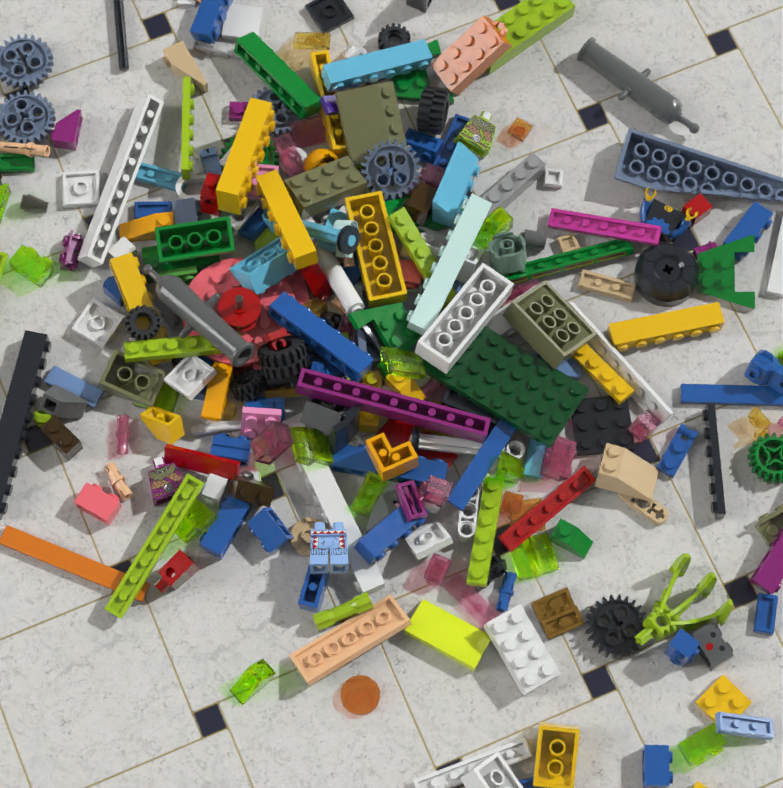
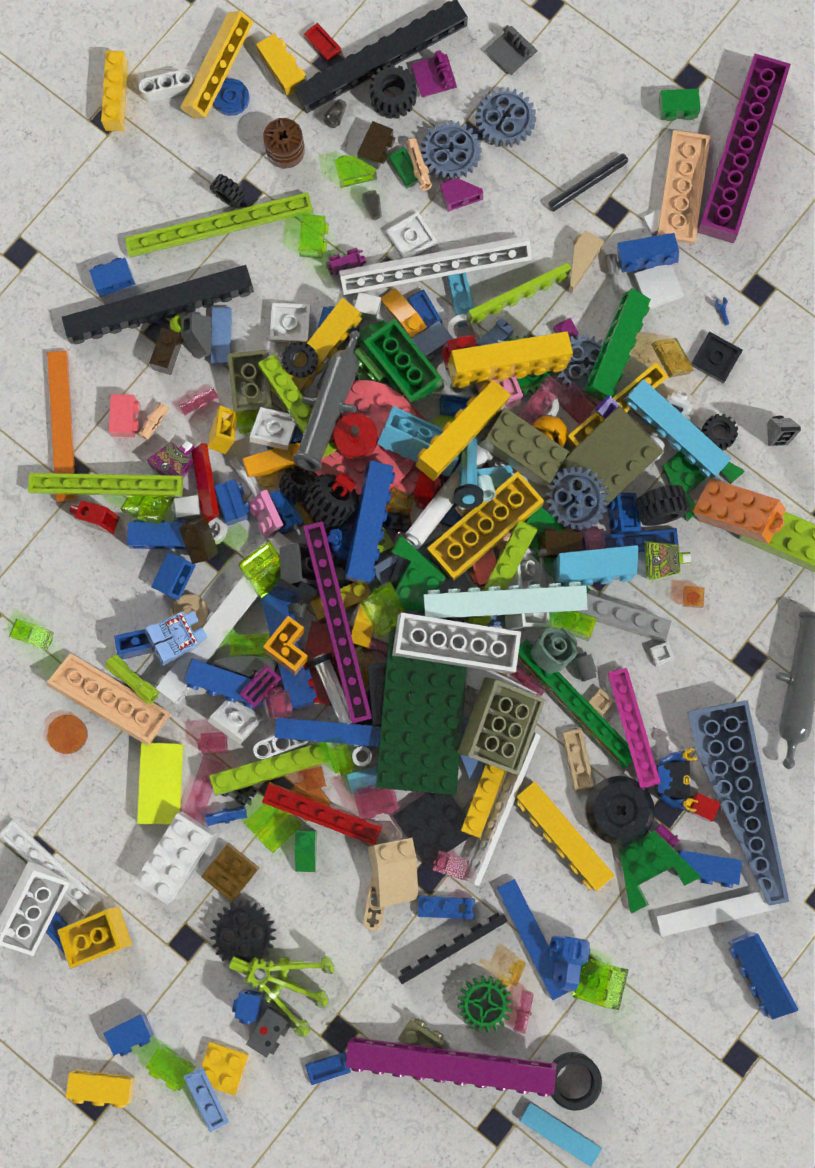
camera: 70 degrees right, 10 degrees up
(271, 443) = (249, 533): clear pink brick -> none

